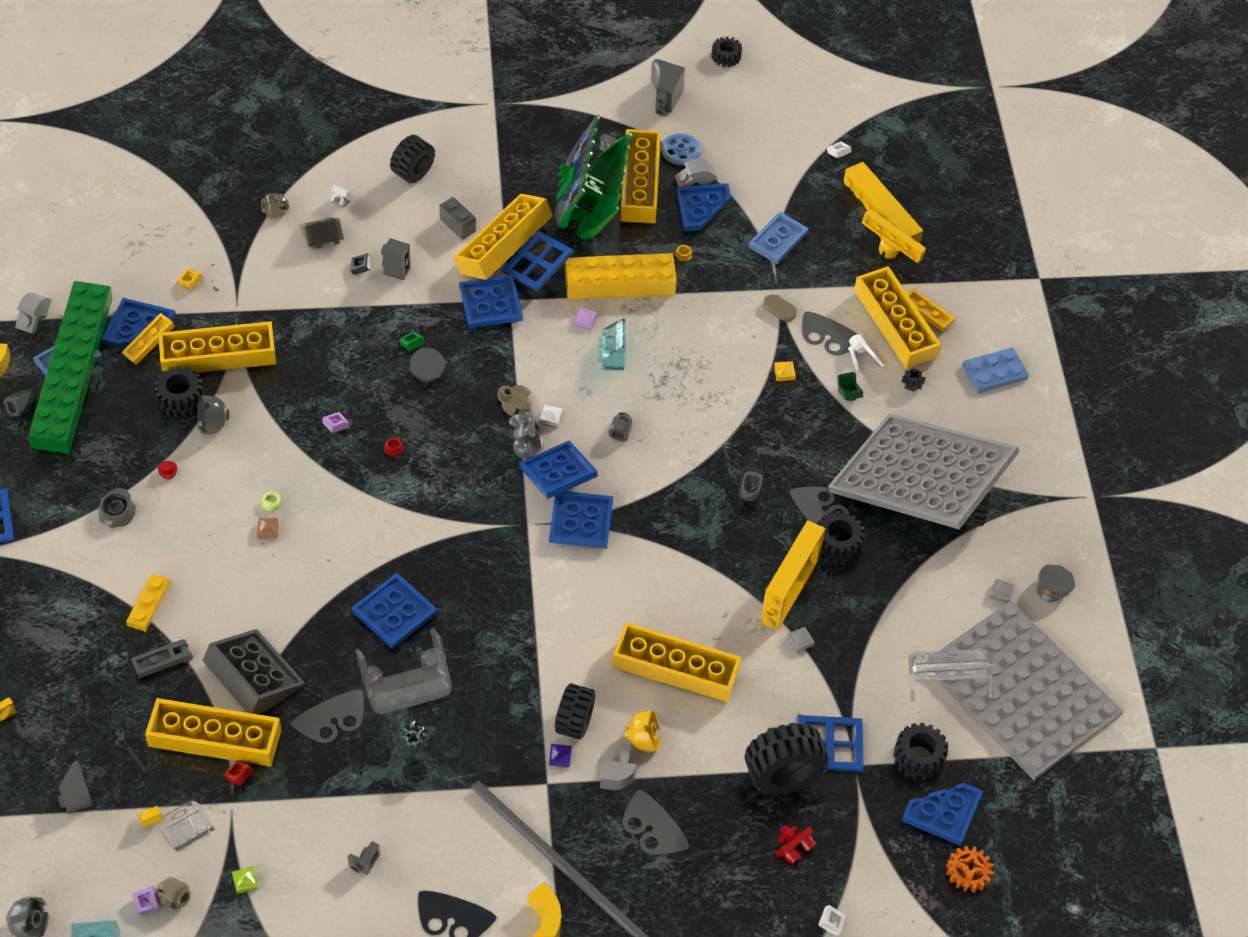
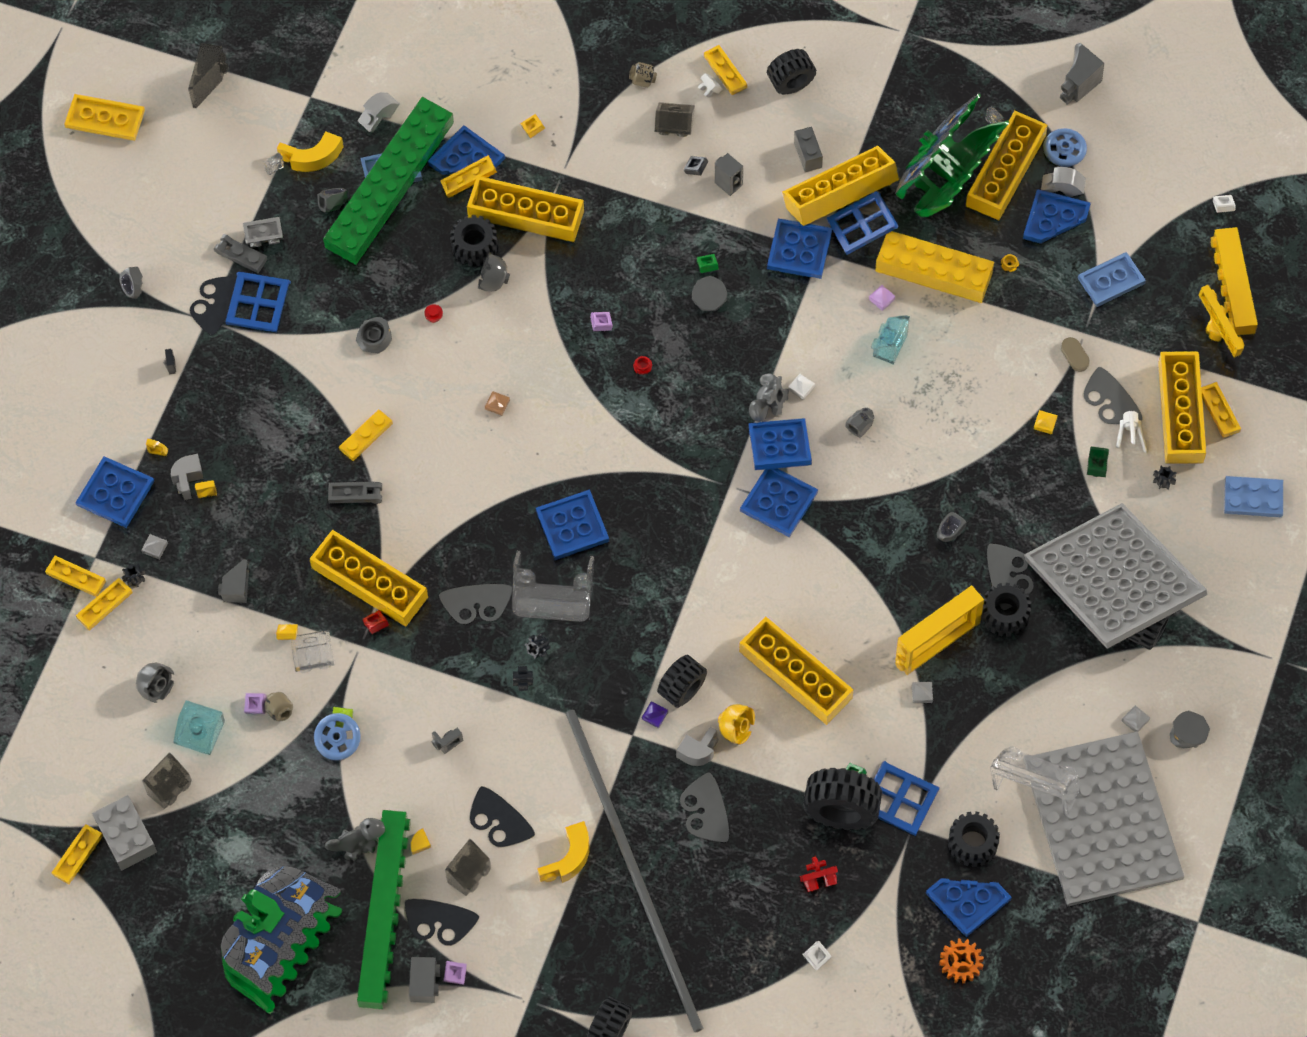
camera: 30 degrees right, 10 degrees up
(252, 671) = (426, 534): dark grey slope -> none
(267, 901) = (351, 744): none -> medium blue plate
(271, 501) = (511, 378): yellowish green tile -> none
(349, 179) = (725, 70): none -> yellow plate
(515, 400) = (777, 359): dark tan plate -> none
(726, 45) = (1170, 44): black tyre -> none

